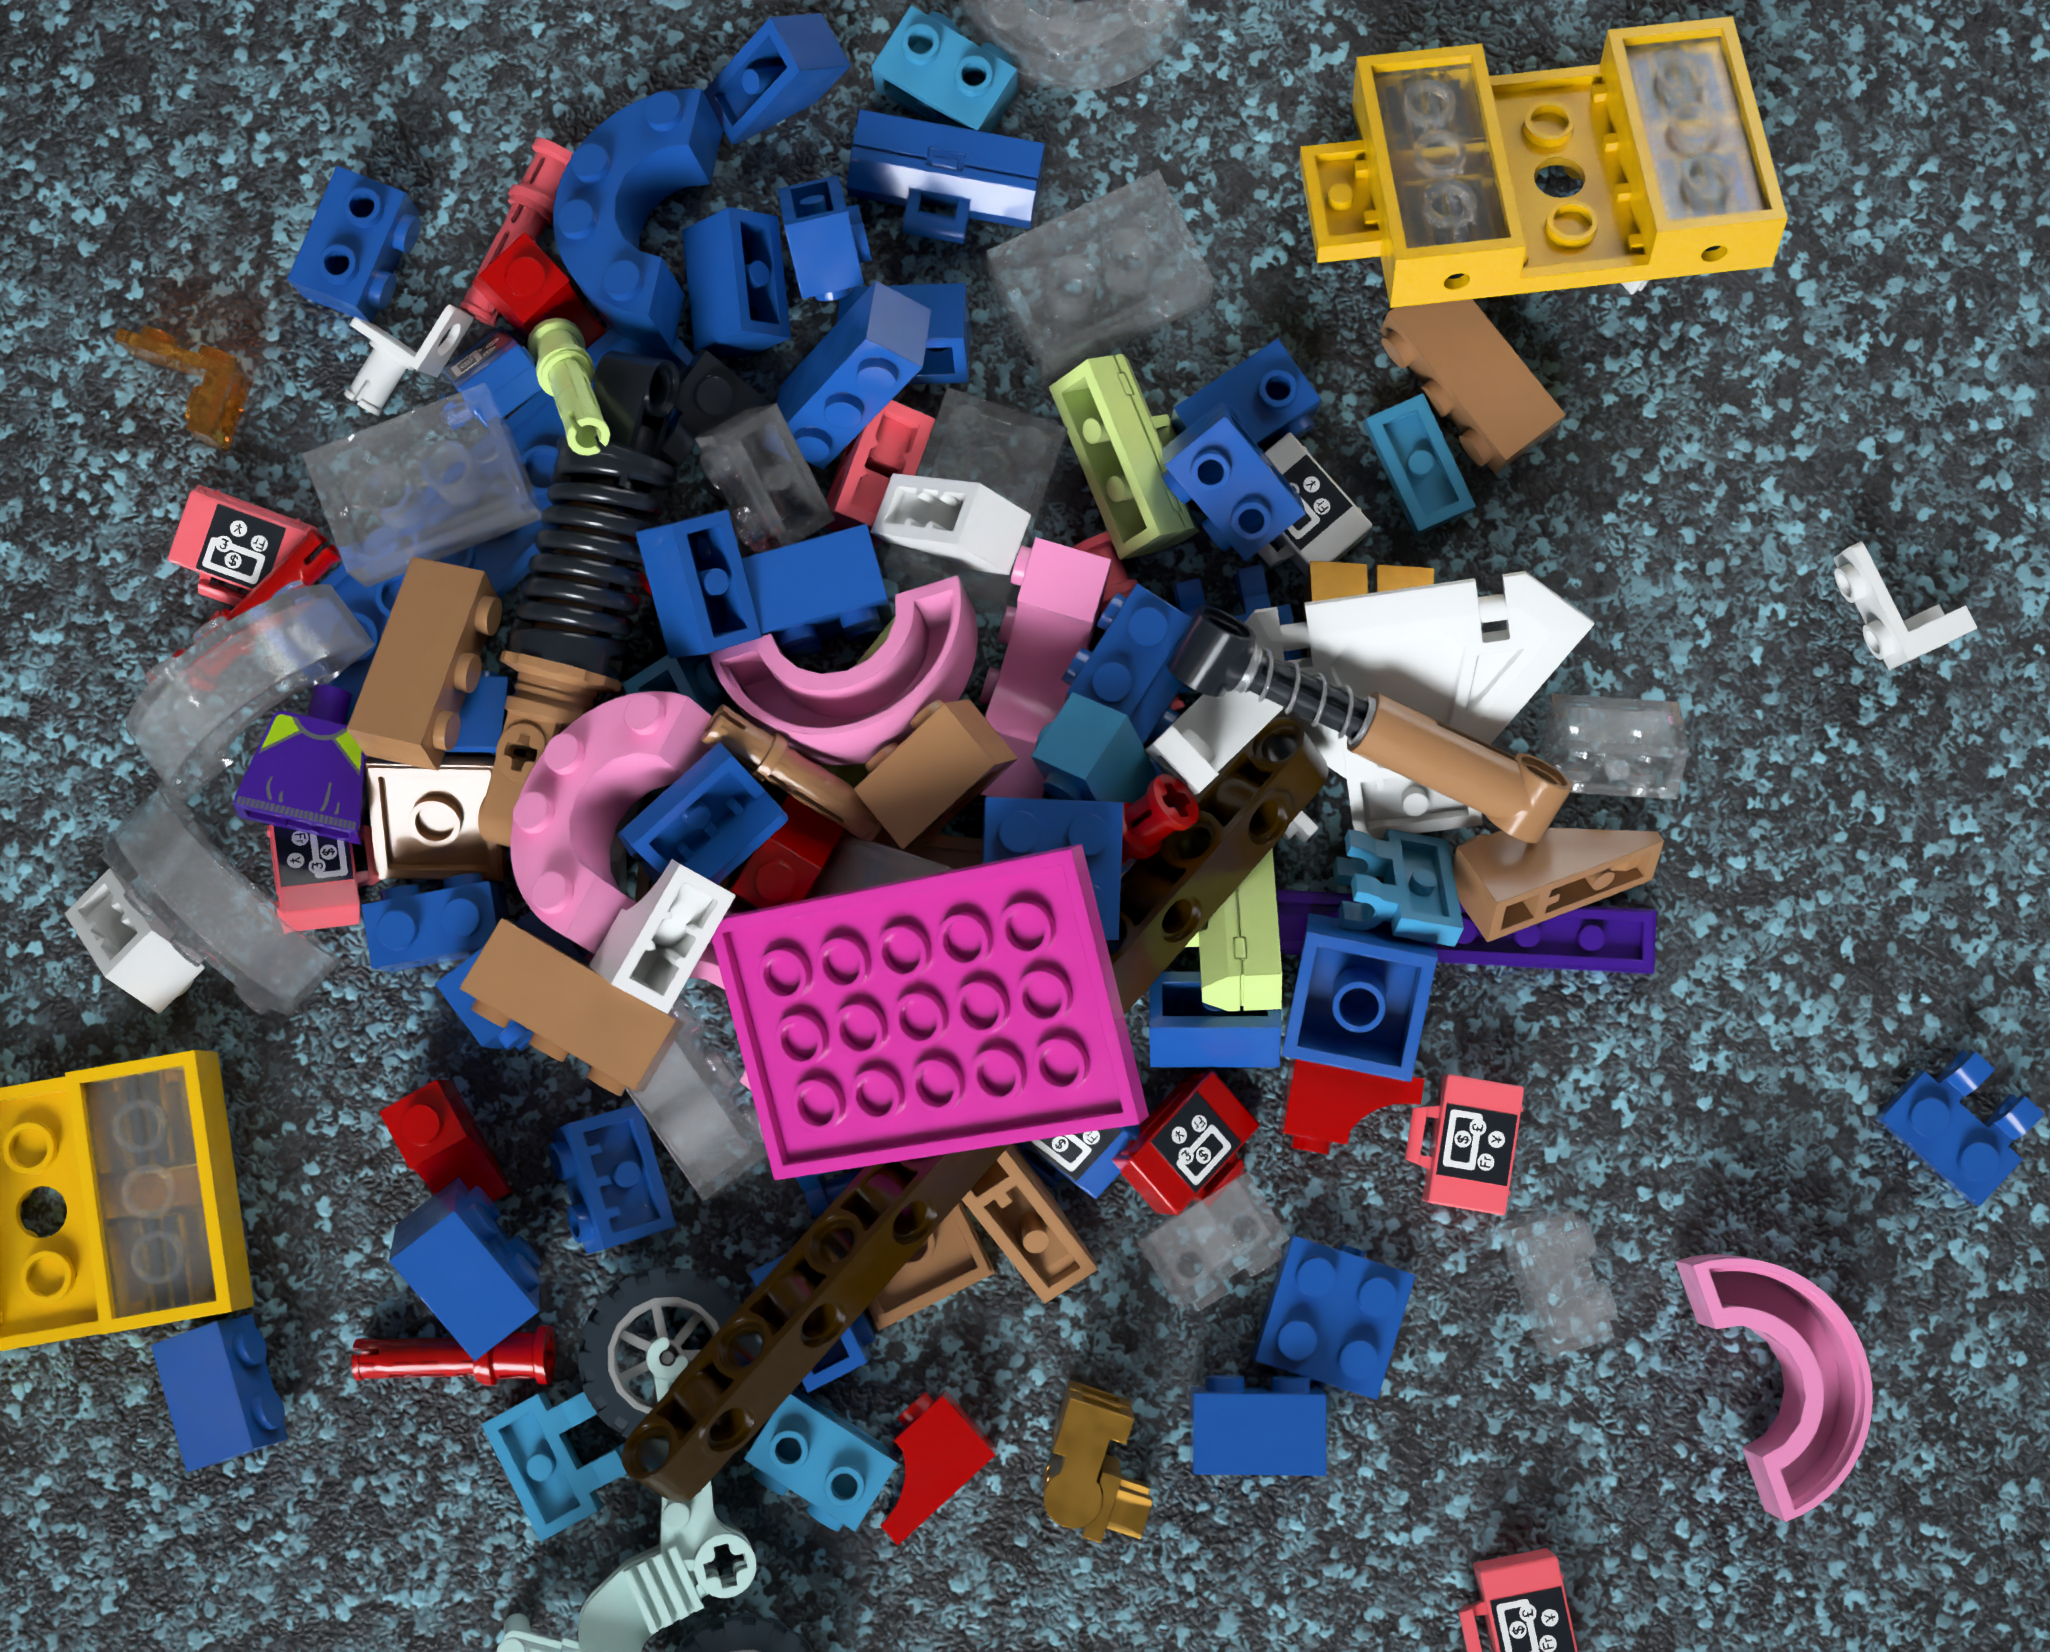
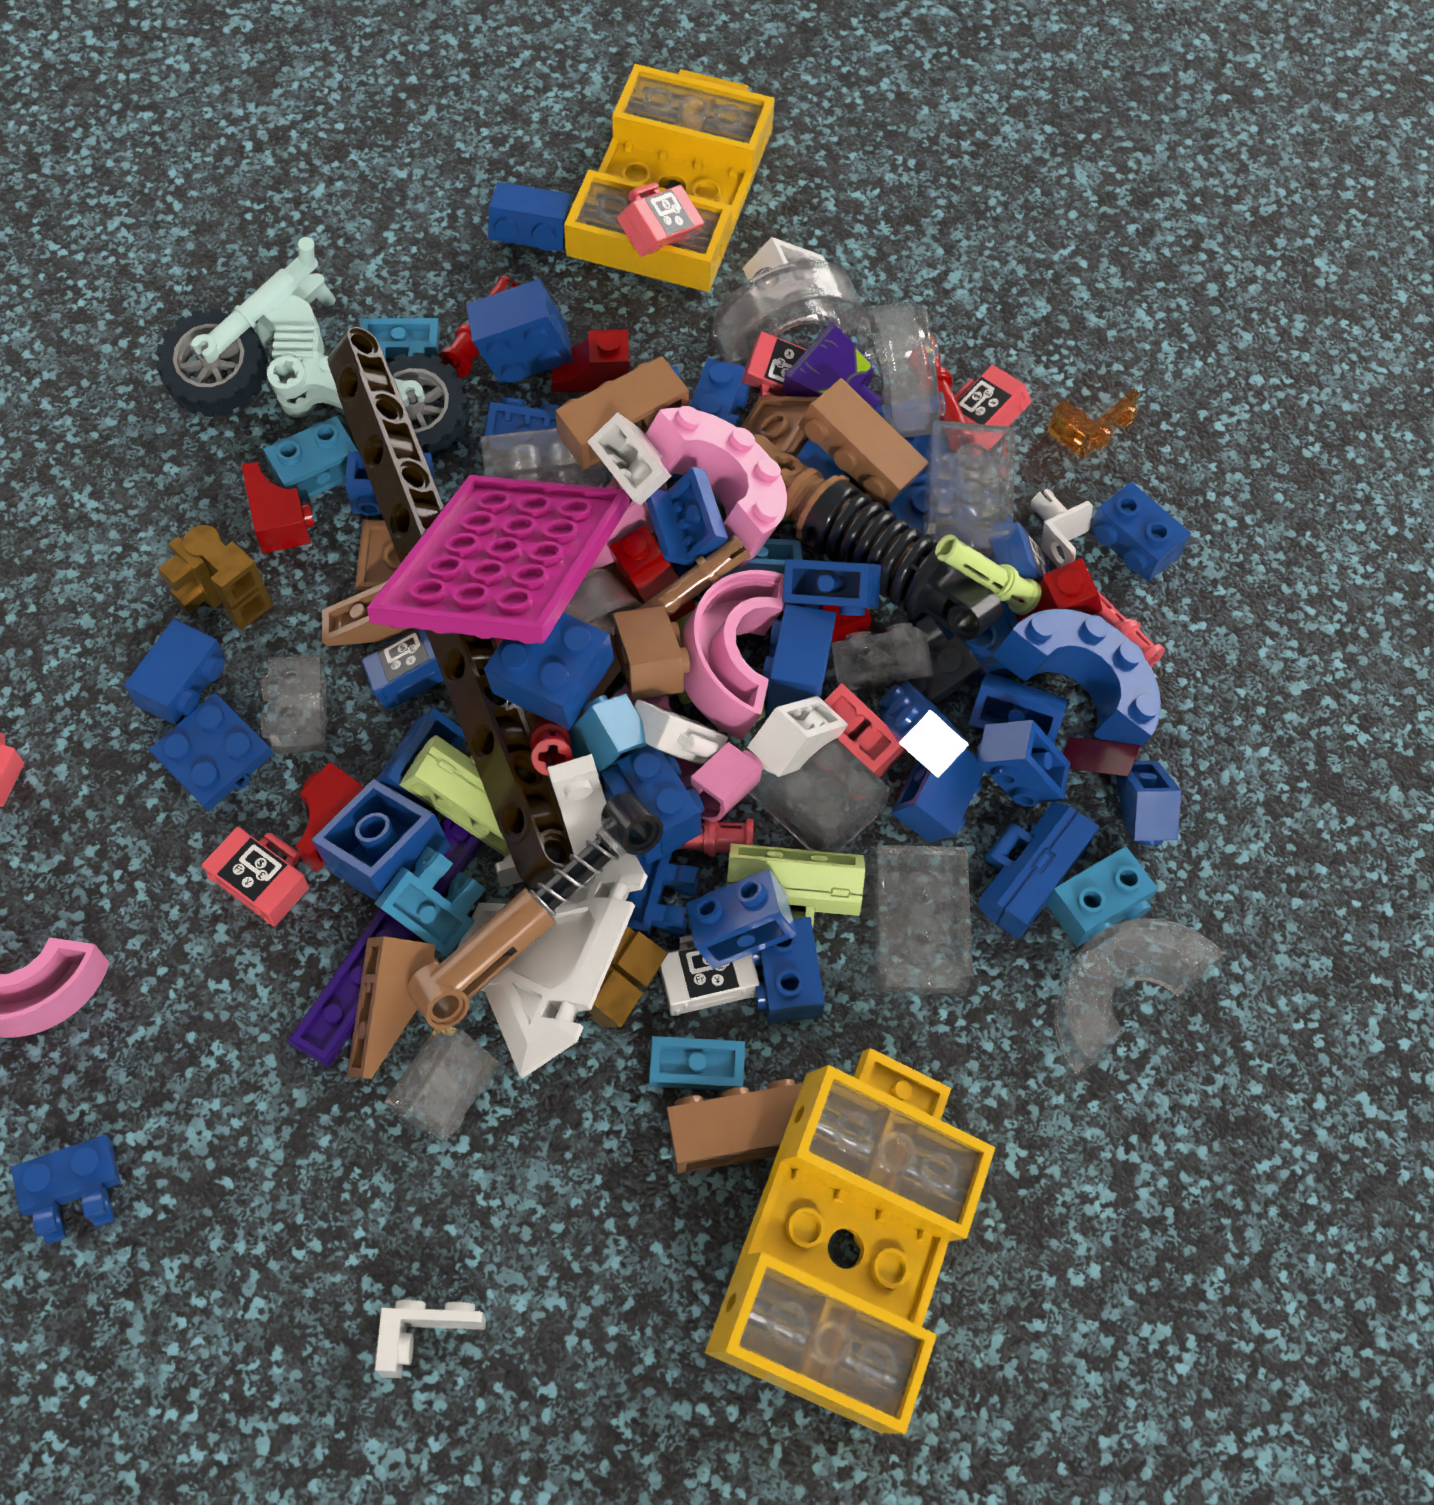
camera: 110 degrees right, 20 degrees down
(158, 1160) = (658, 218): none -> coral piece
(743, 157) = (1101, 756): none -> dark red sticker
(1031, 673) = (678, 734): none -> white piece
(1187, 1144) = (359, 719): red piece -> none
(1557, 1281) = (143, 877): clear brick -> none

